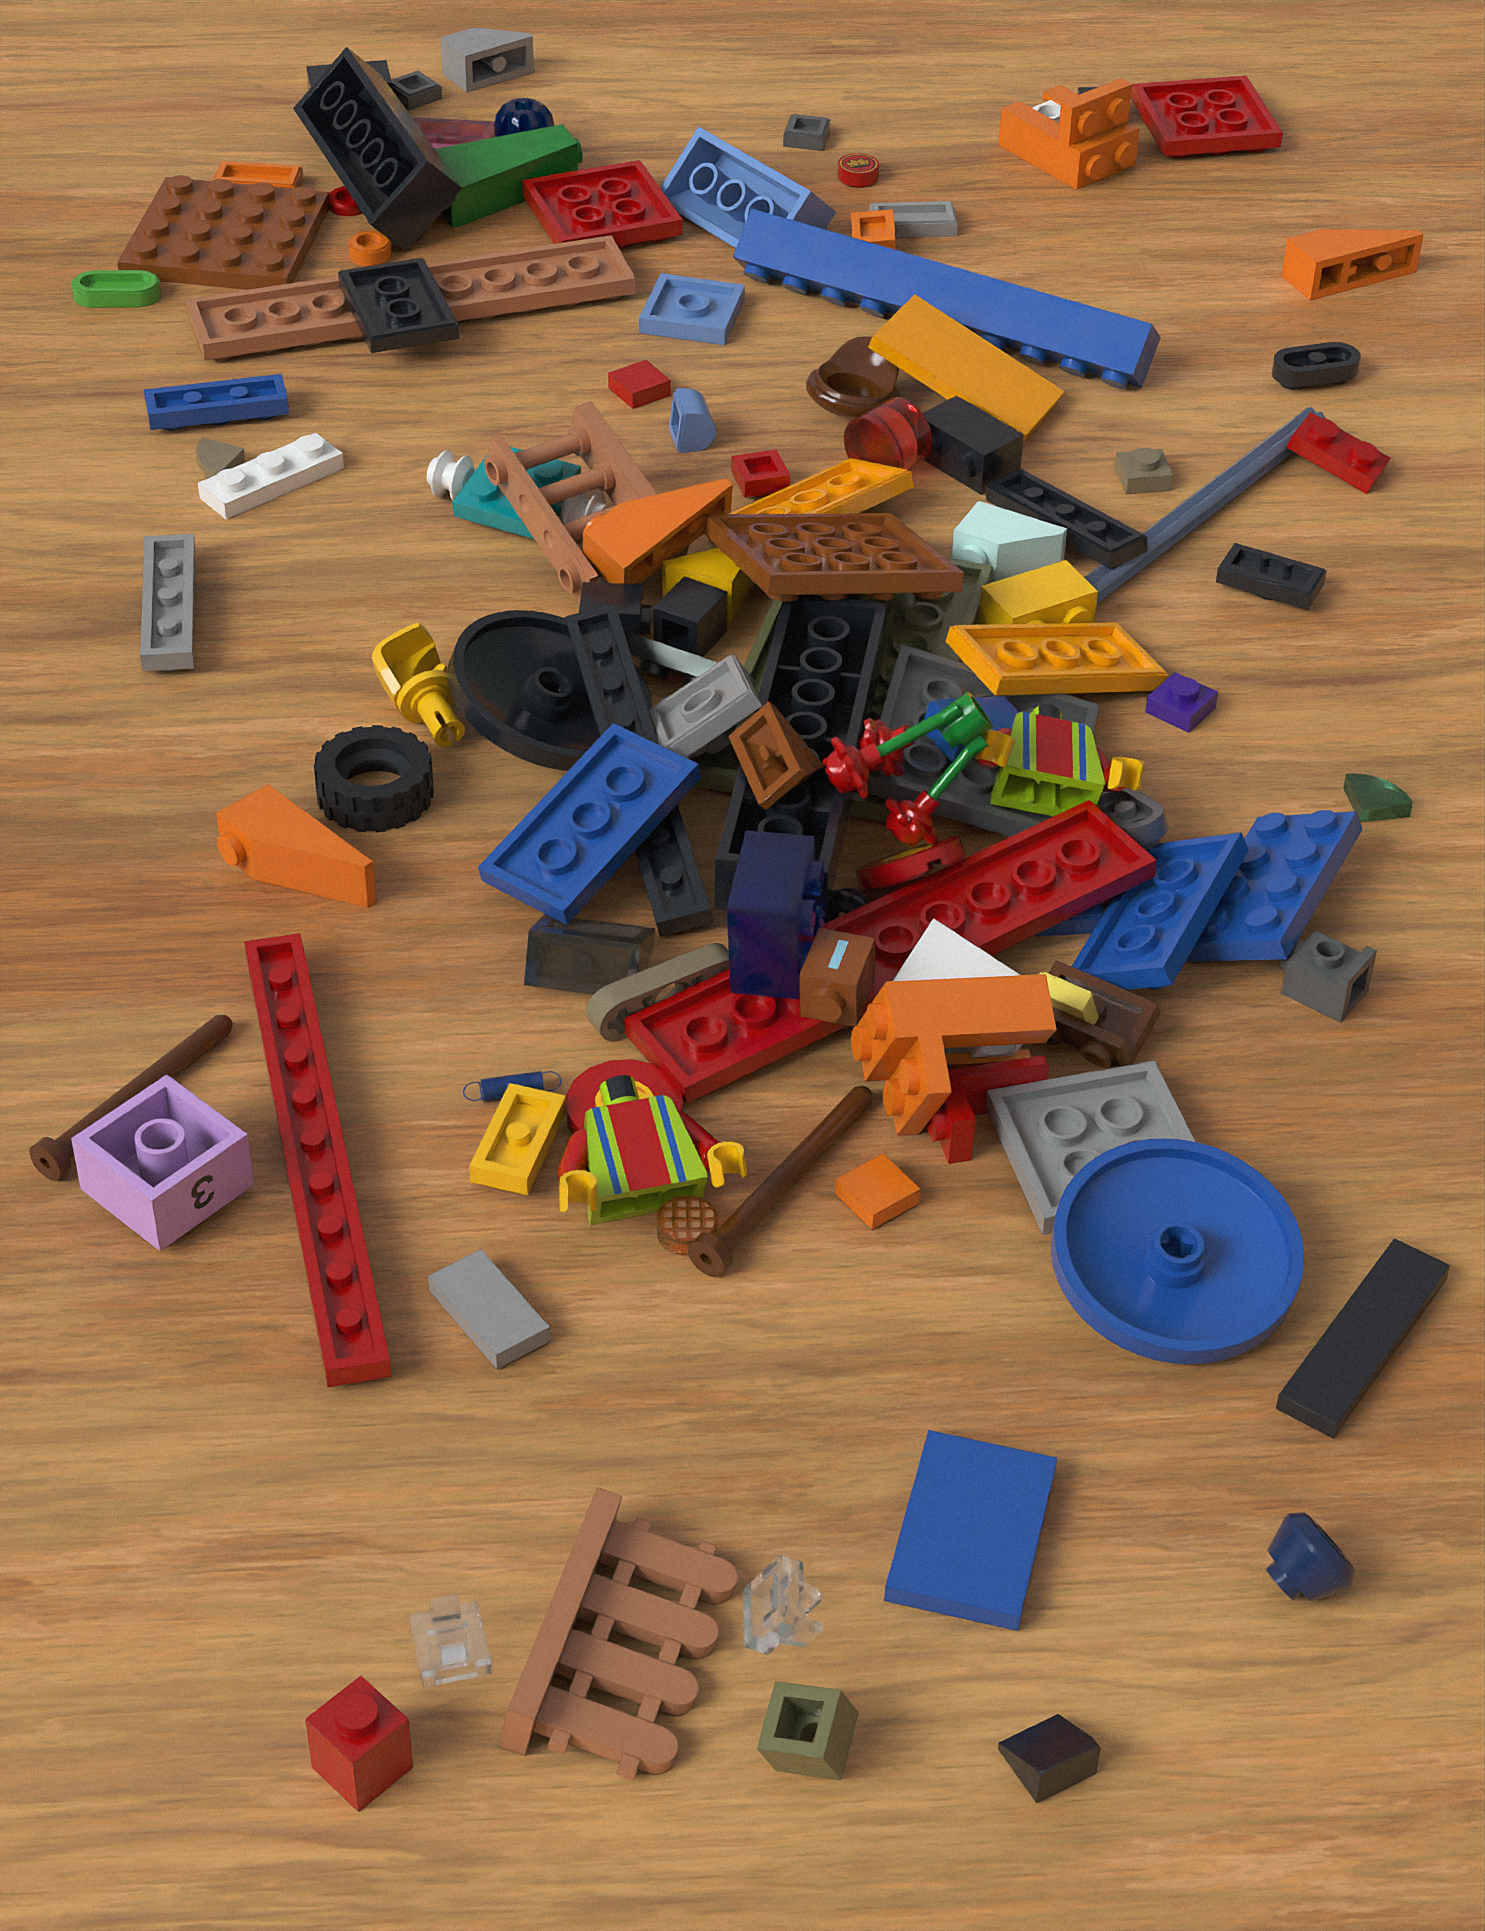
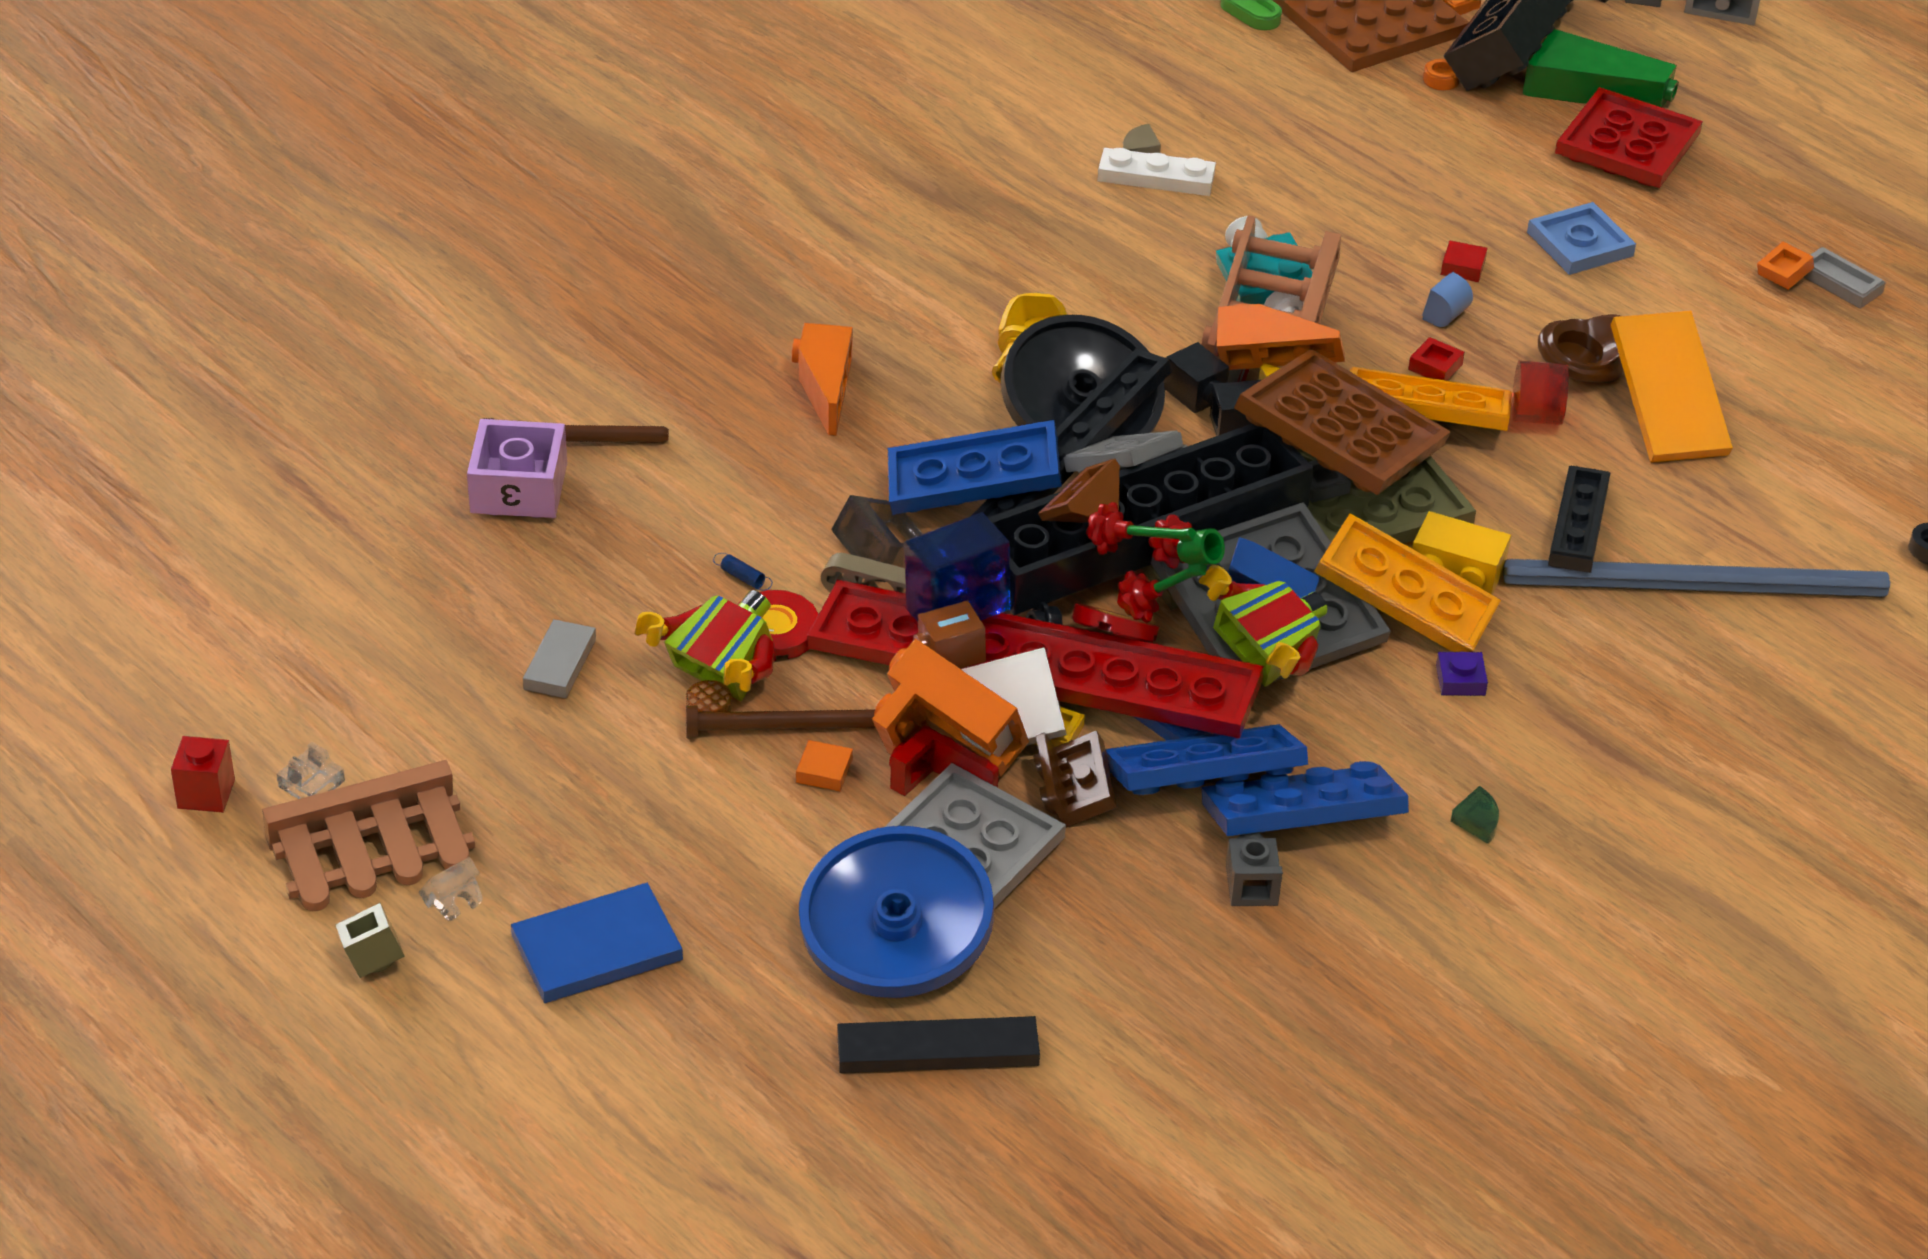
camera: 50 degrees right, 0 degrees up
(168, 603) = (980, 202): light grey plate -> none
(216, 402) = (1190, 108): blue plate -> none
(317, 1164) = (596, 525): red plate -> none
(379, 805) = (928, 390): black tyre -> none
(397, 305) = (1378, 115): black tile -> none
(453, 131) = (1606, 28): clear pink plate -> none
(471, 286) = (1414, 120): nougat plate -> none
(518, 1139) = (695, 589): yellow plate -> none
(522, 116) = (1664, 46): clear blue piece -> none
(660, 659) = (1187, 418): pearl dark grey plate -> none
(720, 185) = (1729, 191): medium blue slope -> none
(806, 132) = (1871, 175): dark grey tile -> none
(858, 170) = (1861, 221): red tile -> none
(972, 444) = (1597, 431): black brick -> none
(996, 310) = (1747, 340): blue brick -> none
(1007, 541) = (1507, 504): light aqua slope -> none
(1051, 1756) = (457, 1058): black slope -> none
(1072, 999) = (1057, 752): light yellow tile -> none
(1136, 815) = (1288, 699): flat silver plate -> none
(1143, 471) = (1699, 532): dark tan plate -> none
(1271, 576) = (1656, 648): black plate -> none
(1307, 1560) = (709, 1095): dark blue cone -> none
(1338, 452) = (1852, 613): red plate -> none

